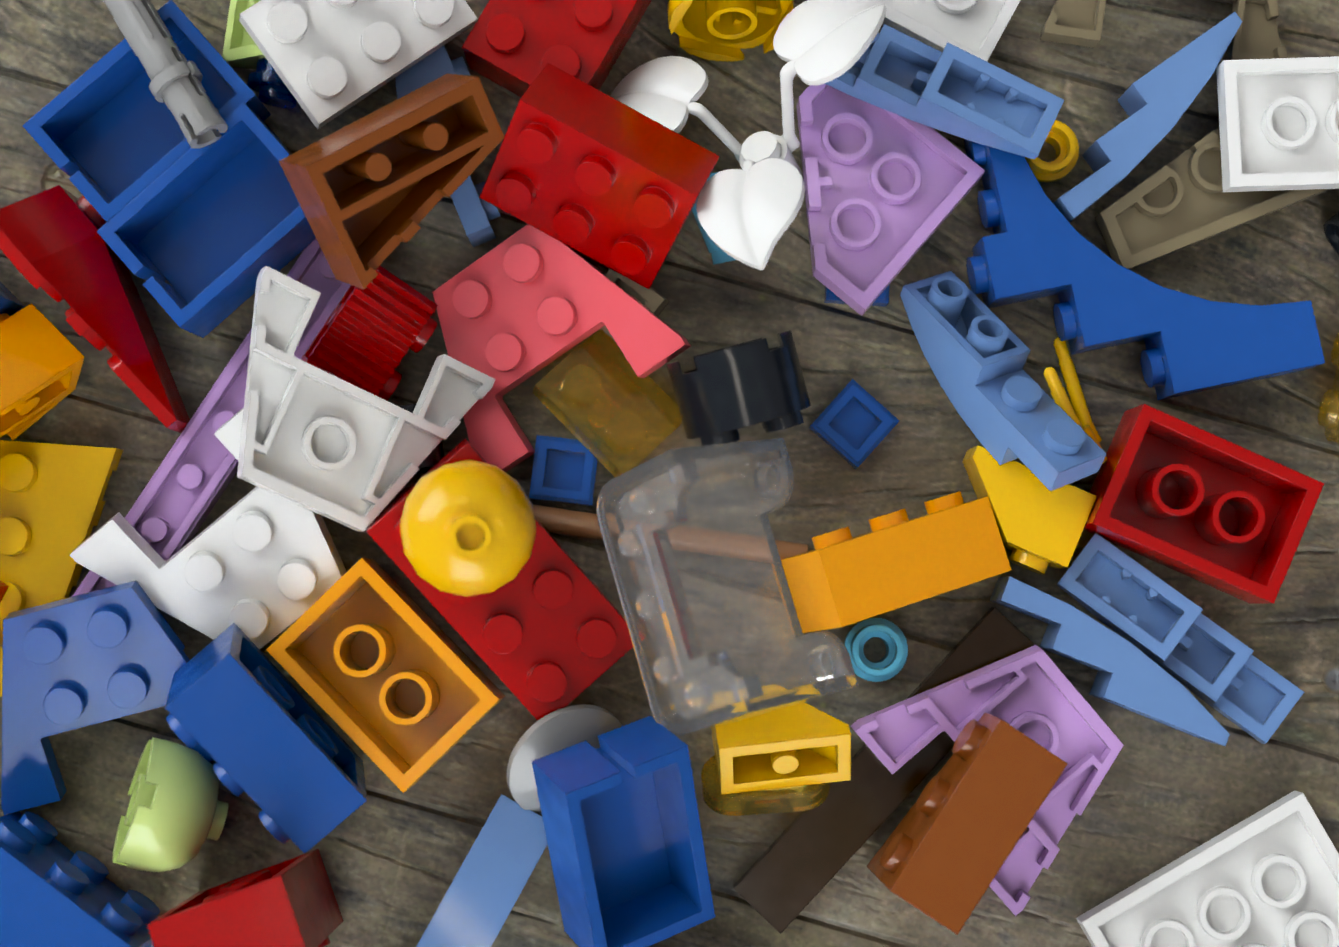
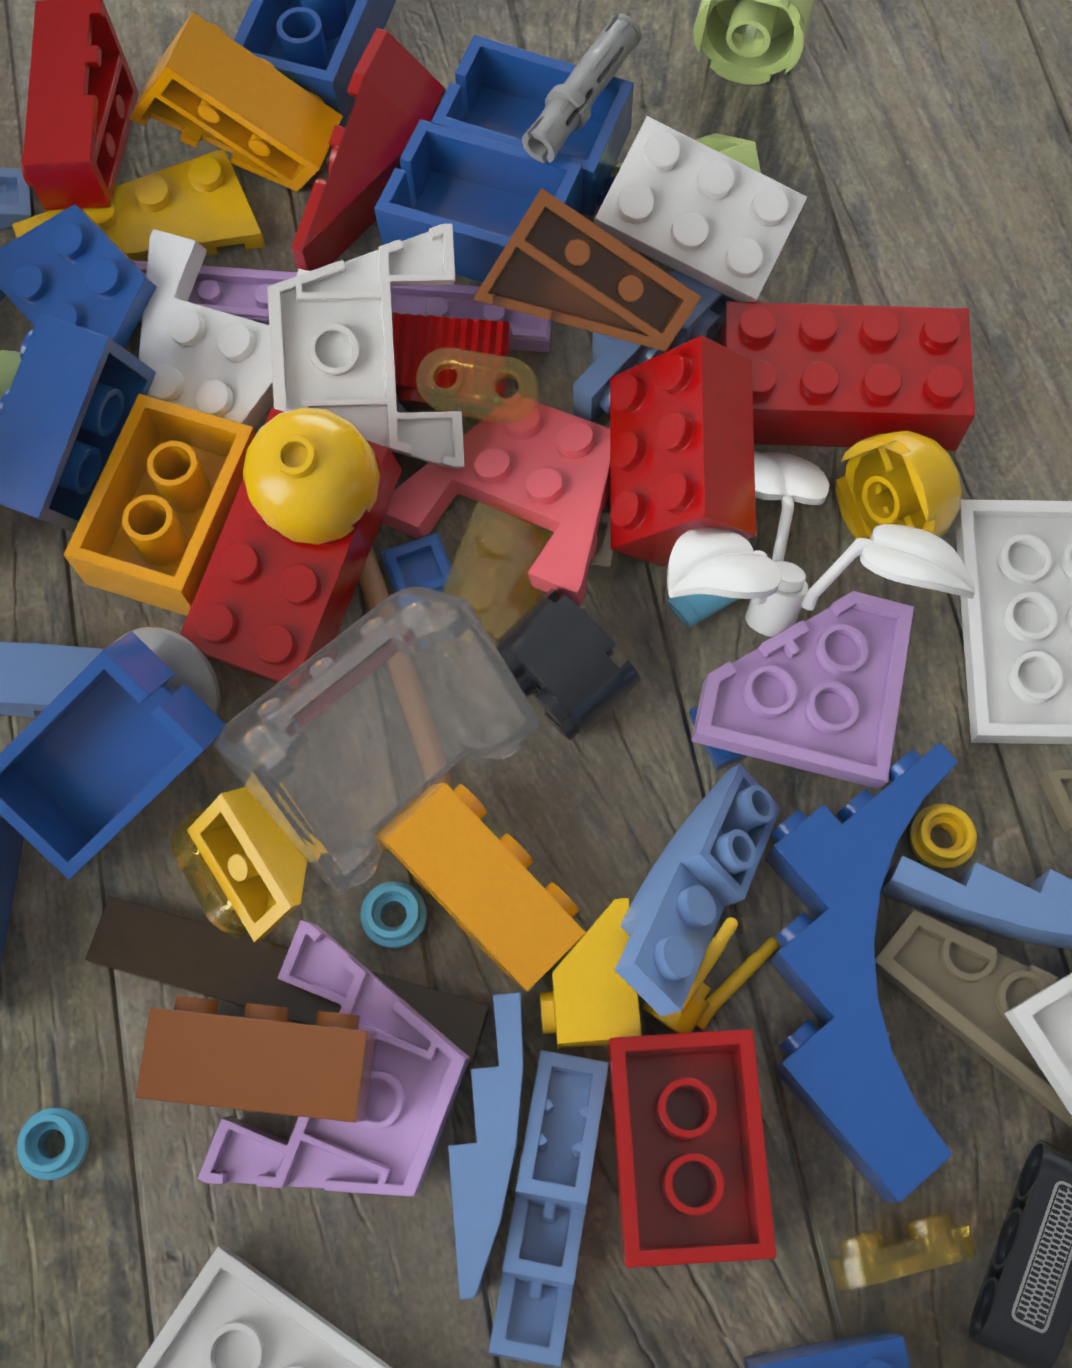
camera: 70 degrees right, 15 degrees down
(422, 322) = (476, 385): none -> clear yellow plate
(854, 424) = (592, 792): blue tile -> none
(952, 93) = (934, 695): medium blue slope -> none

